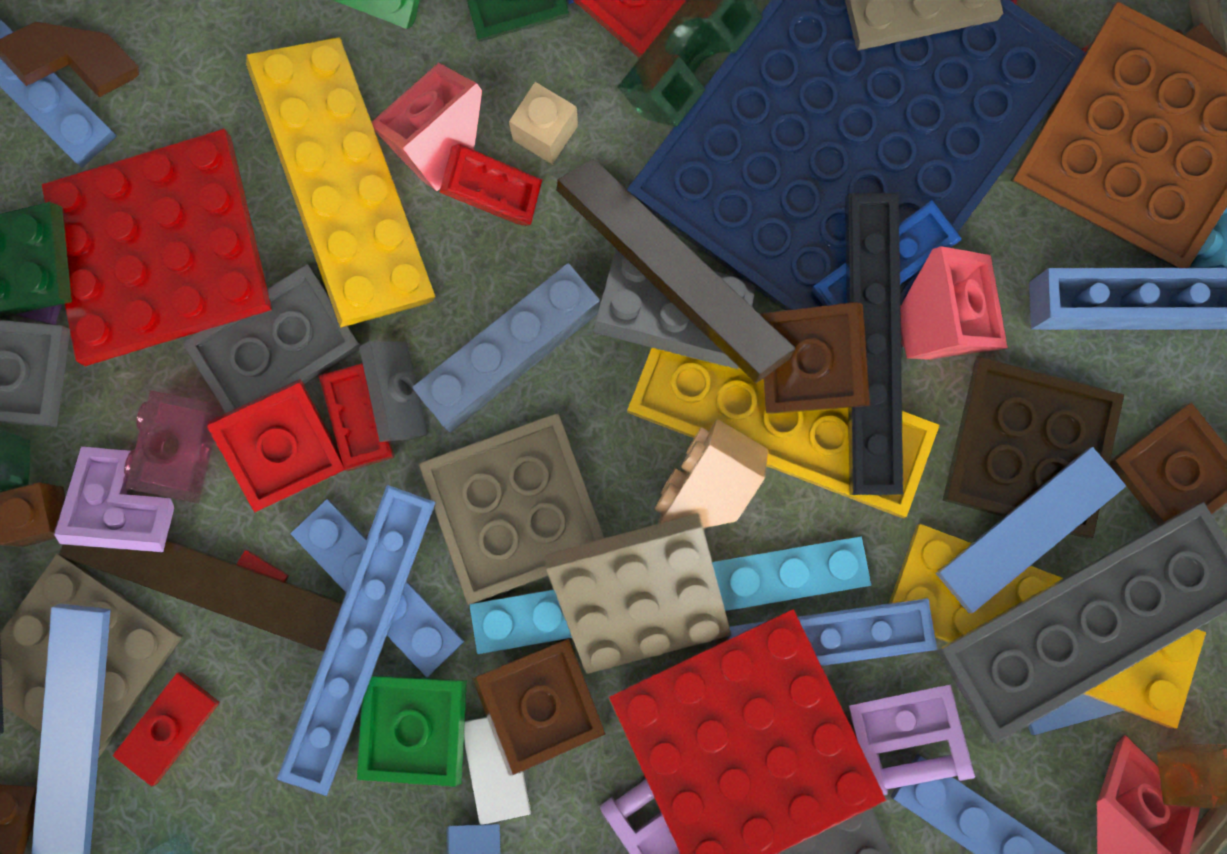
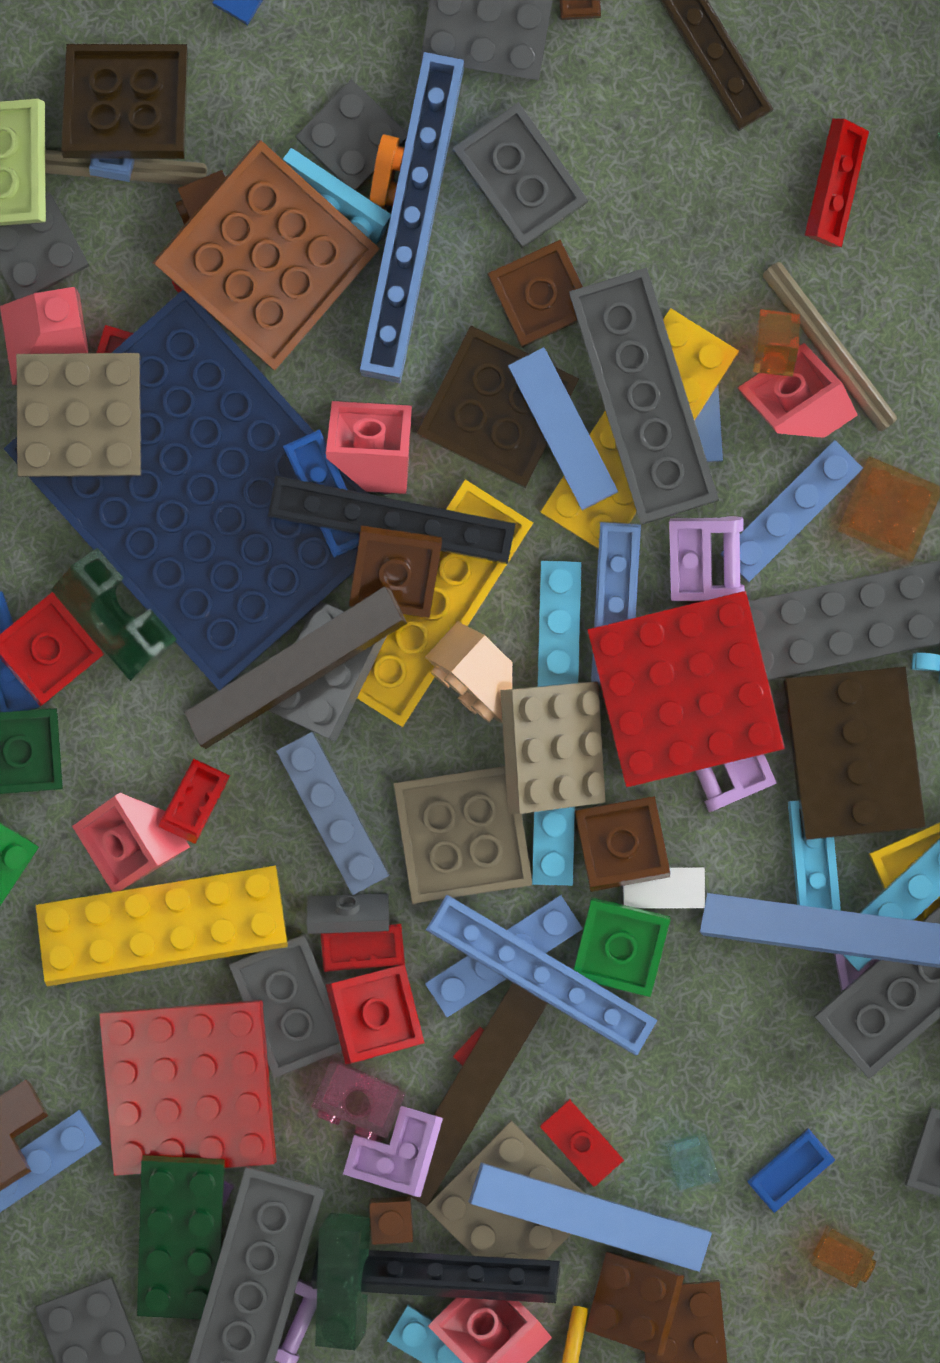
camera: 75 degrees left, 5 degrees up
(543, 123) = (149, 747): tan brick -> none

